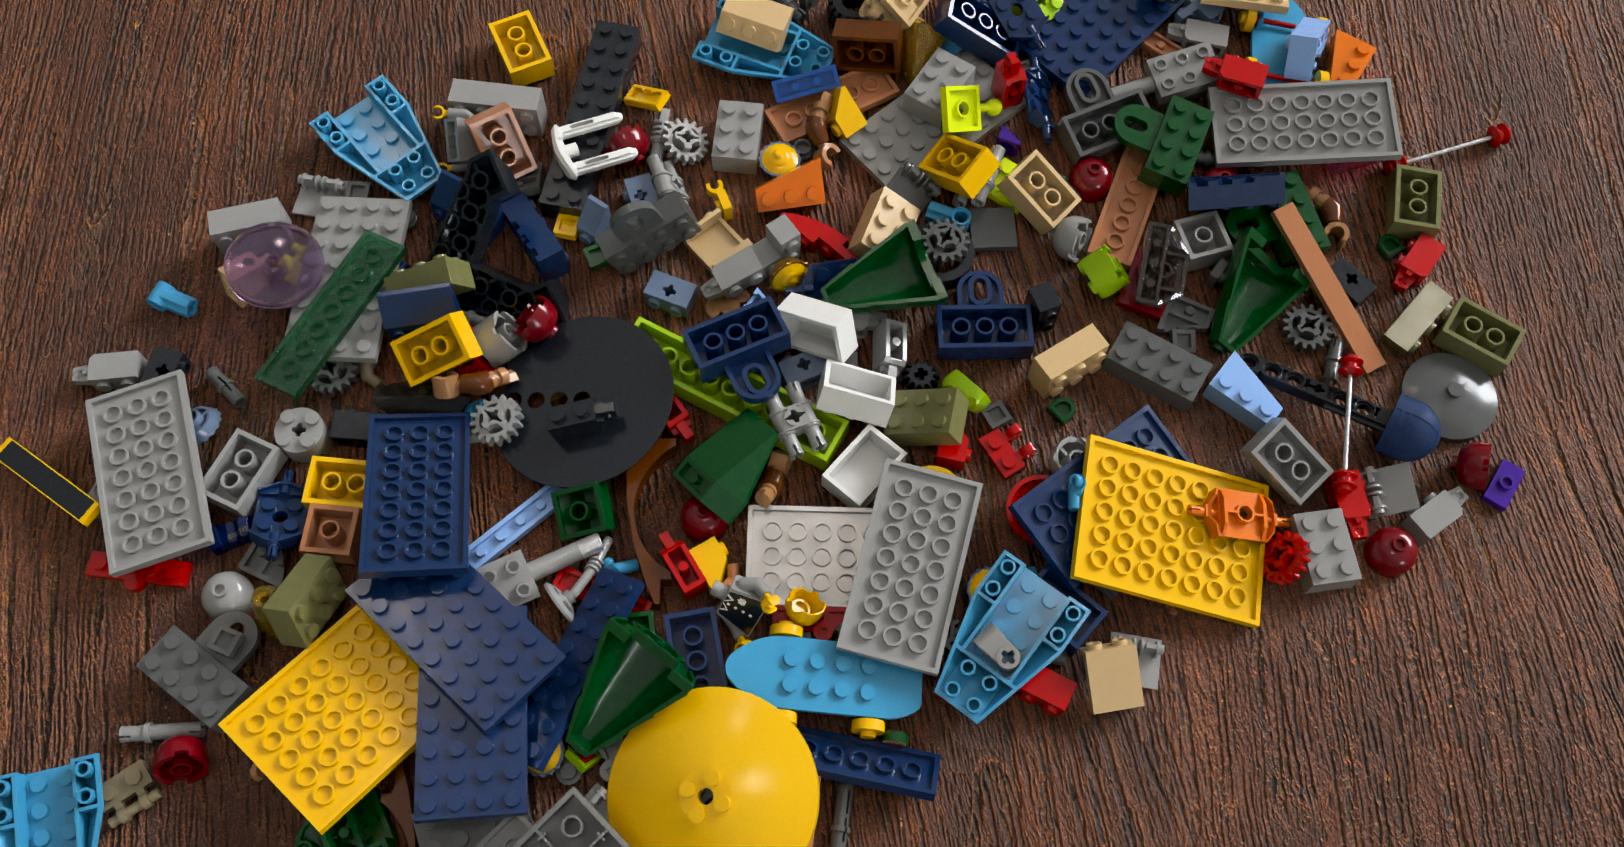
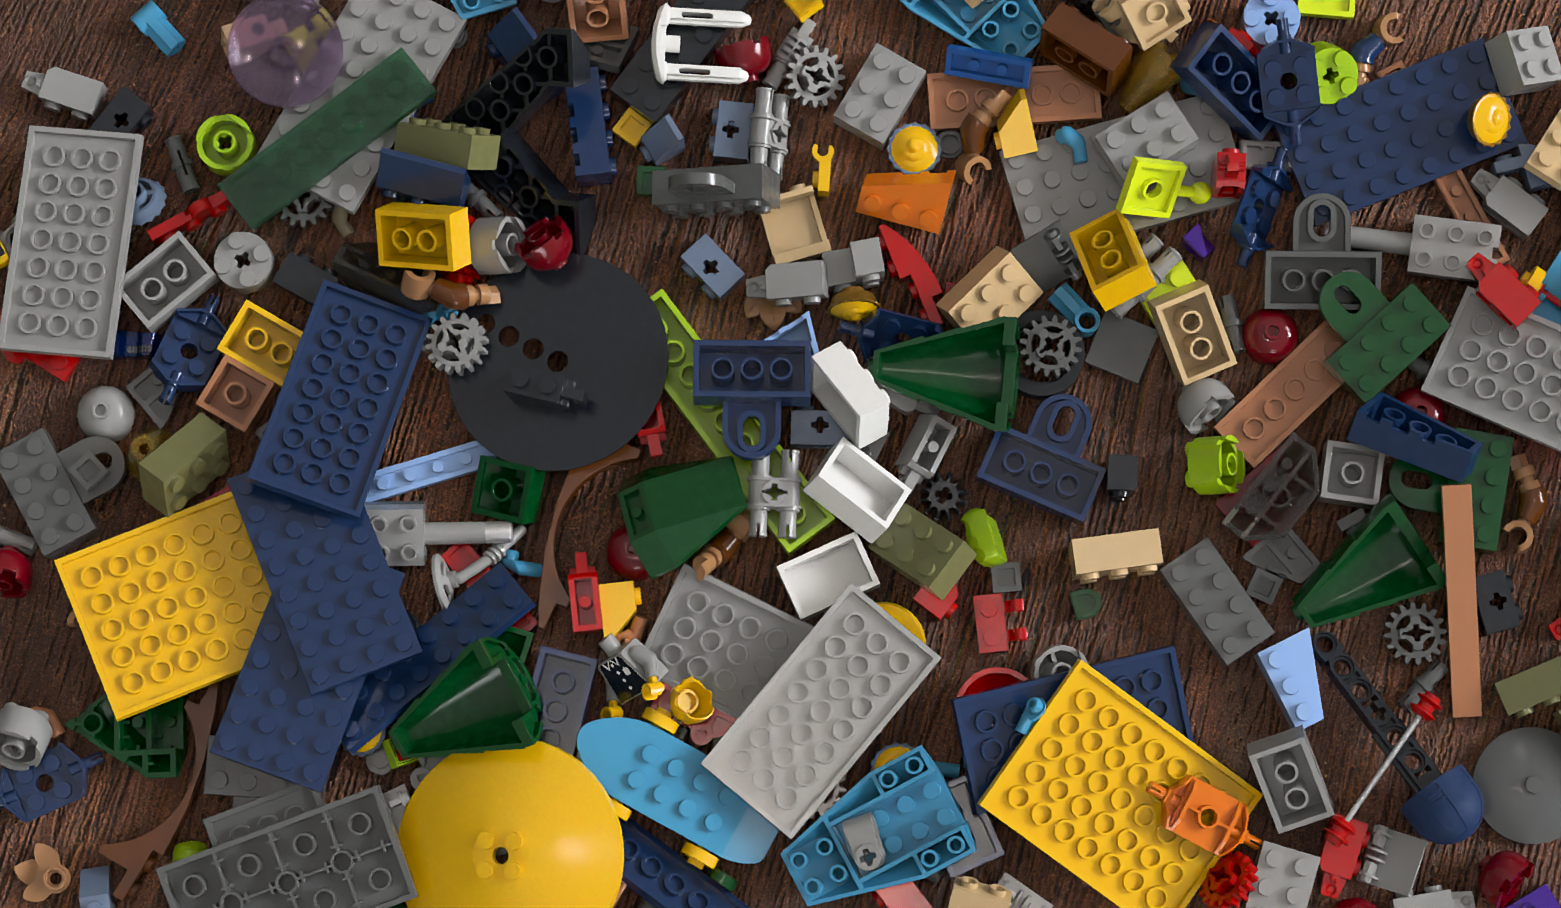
camera: 30 degrees right, 15 degrees up
(250, 352) = (225, 129): none -> lime brick
(253, 412) = (199, 211): none -> red hinge
(884, 106) = (1075, 141): none -> dark azure arm

